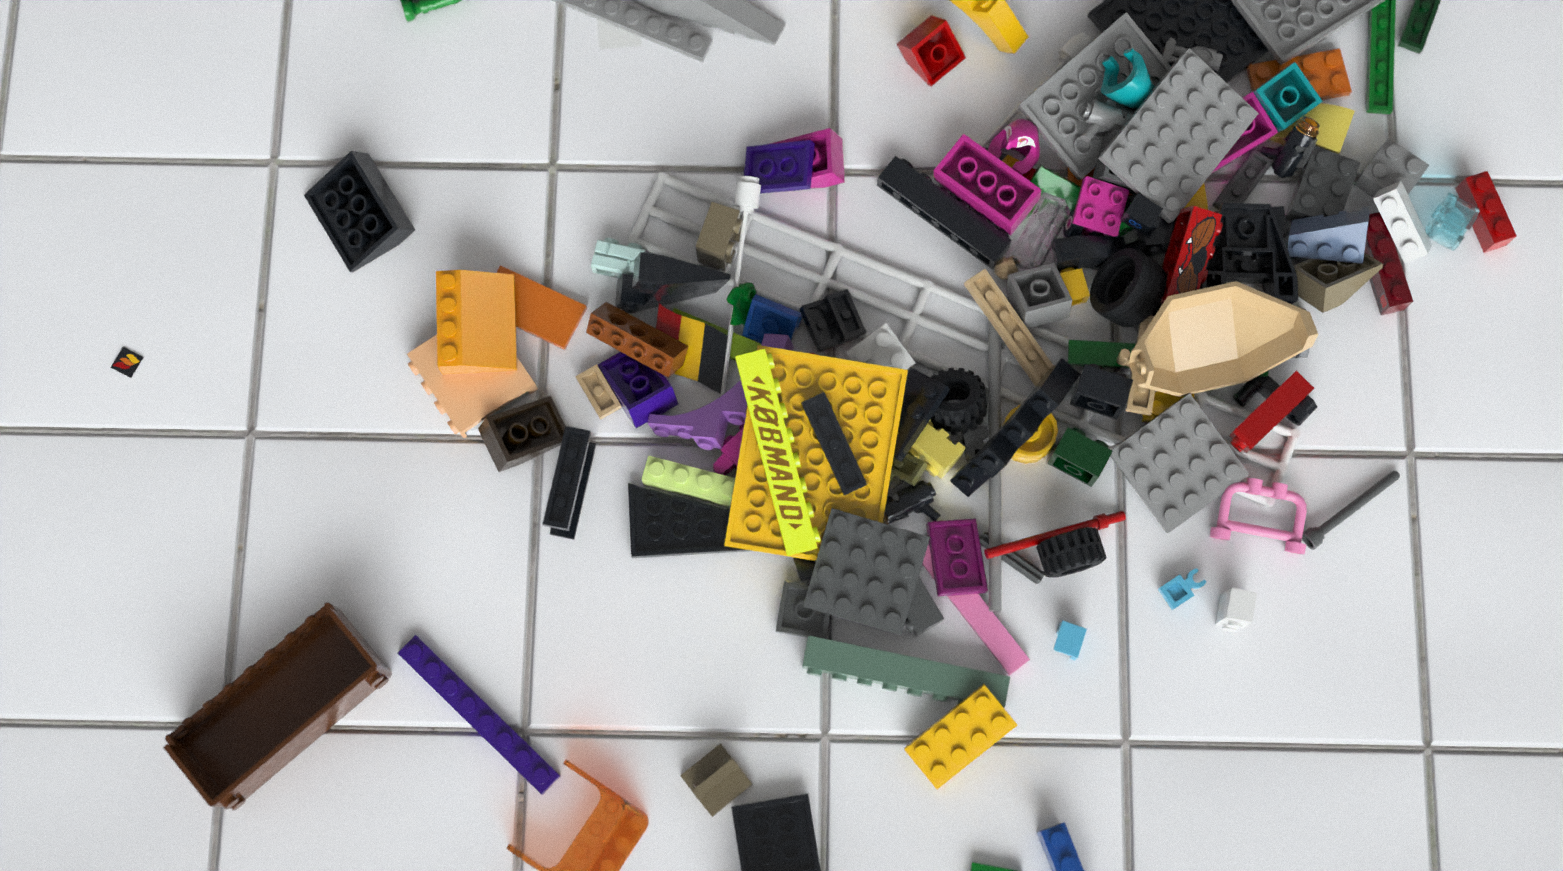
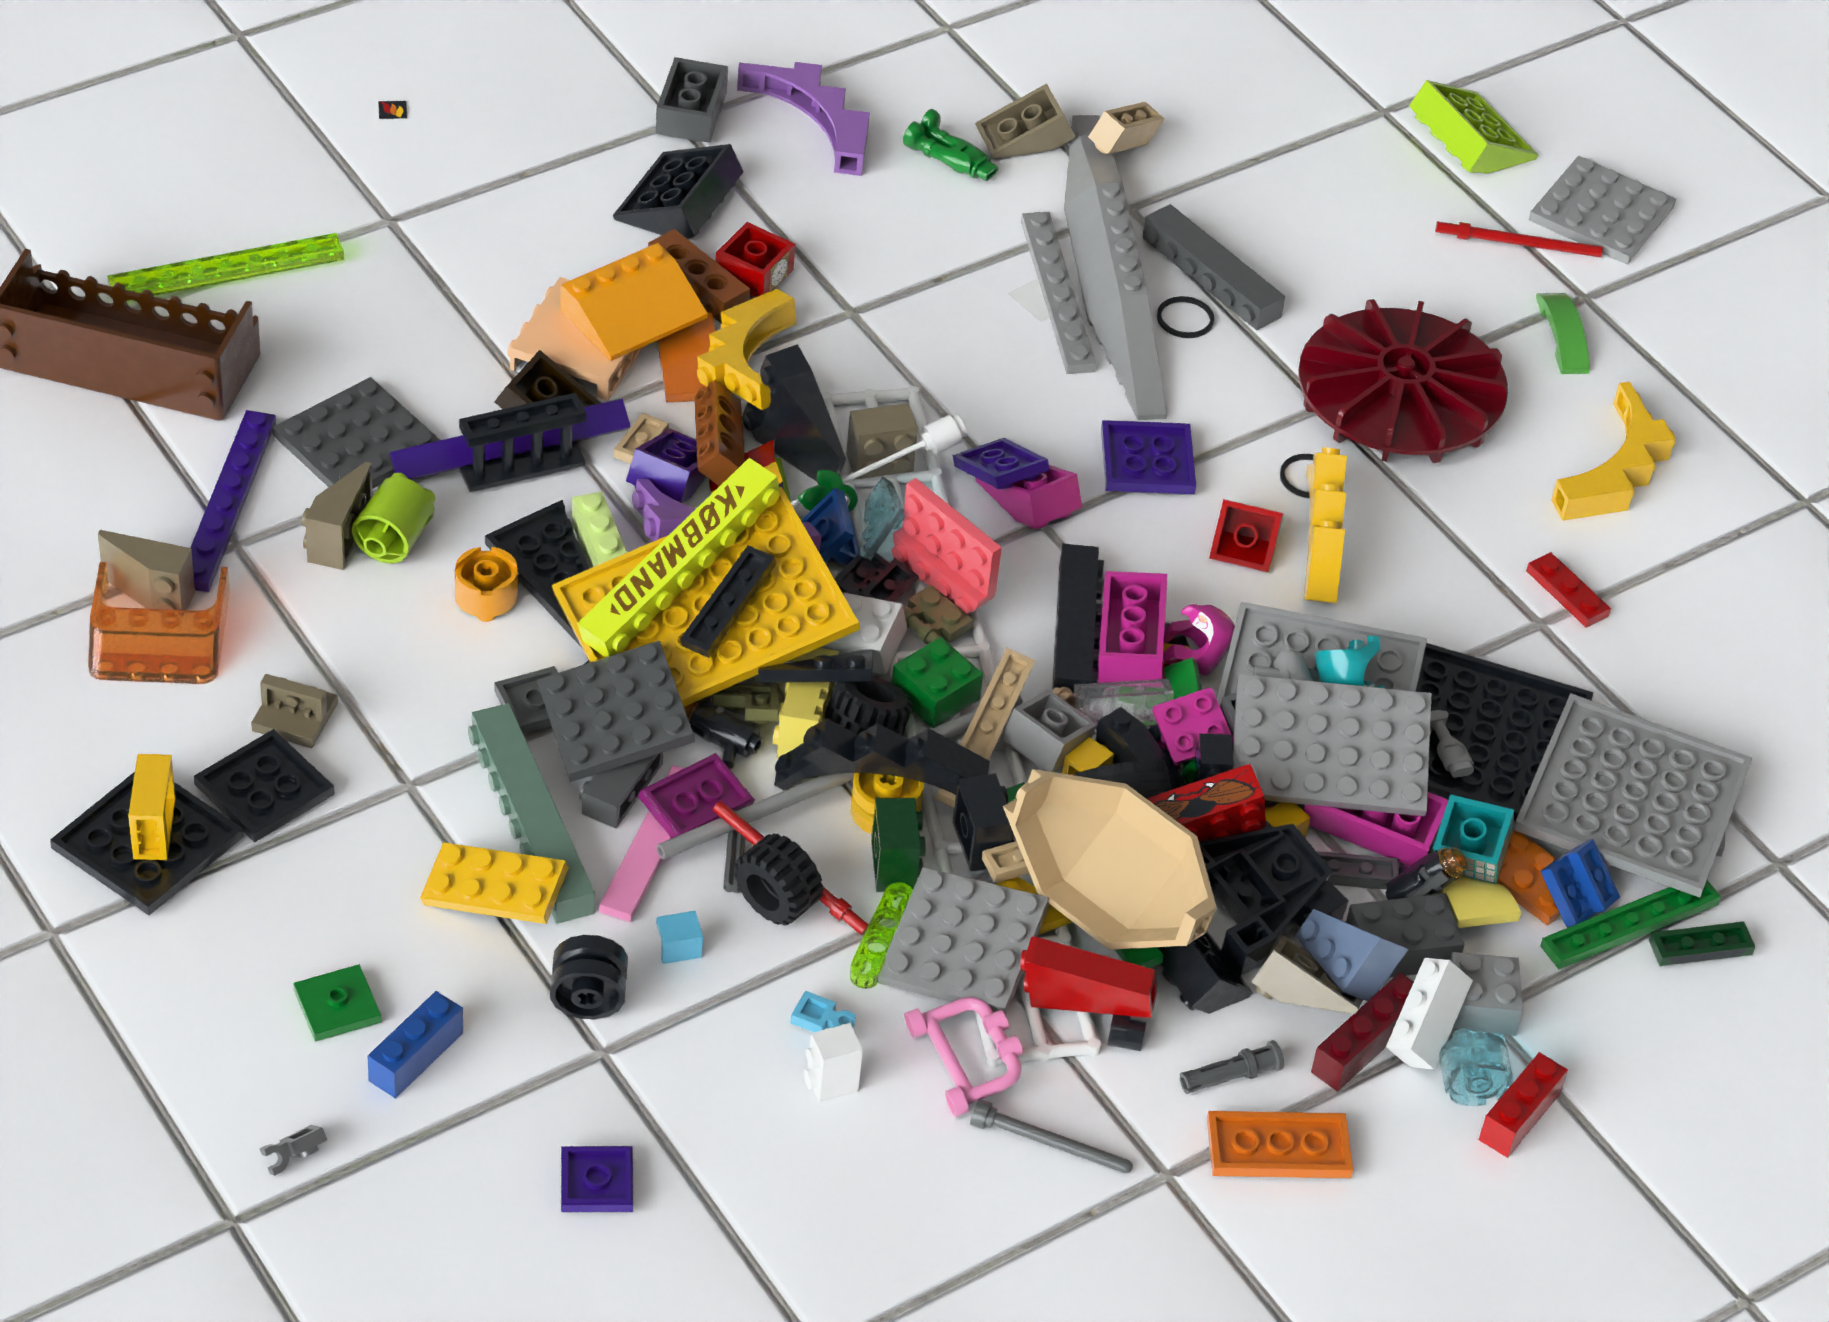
camera: 50 degrees right, 30 degrees down
(233, 586) = (232, 265): none -> clear neon green plate
(270, 143) = (691, 100): none -> dark grey brick
(302, 55) = (824, 104): none -> medium lavender arch
(470, 243) = (710, 281): none -> dark orange brick
(472, 205) = (757, 258): none -> red brick
(472, 588) = (351, 430): none -> dark grey plate
(535, 535) = (454, 452): none -> dark purple tile
(536, 254) = (741, 334): none -> yellow arch
(541, 813) = (148, 570): none -> dark tan slope
(563, 658) = (332, 516): none -> dark tan slope
(585, 615) = (393, 519): none -> lime cylinder
(668, 576) = (486, 582): none -> light orange brick
(790, 279) = (882, 514): none -> clear light blue wing
(820, 64) = (1148, 457): none -> dark purple plate
(857, 264) = (946, 549): none -> coral plate
(887, 296) = (939, 613): none -> olive plate
(955, 340) = (938, 681): none -> green brick
(1079, 722) = (589, 977): none -> black wheel
(1131, 509) = (879, 934): none -> clear neon green beam
(1232, 809) = (596, 1178): none -> dark purple plate
(1344, 56) = (1580, 883): none -> blue slope
(1359, 351) = (1246, 1065): none -> dark grey pin
(1432, 374) = (1279, 1144): none -> orange plate

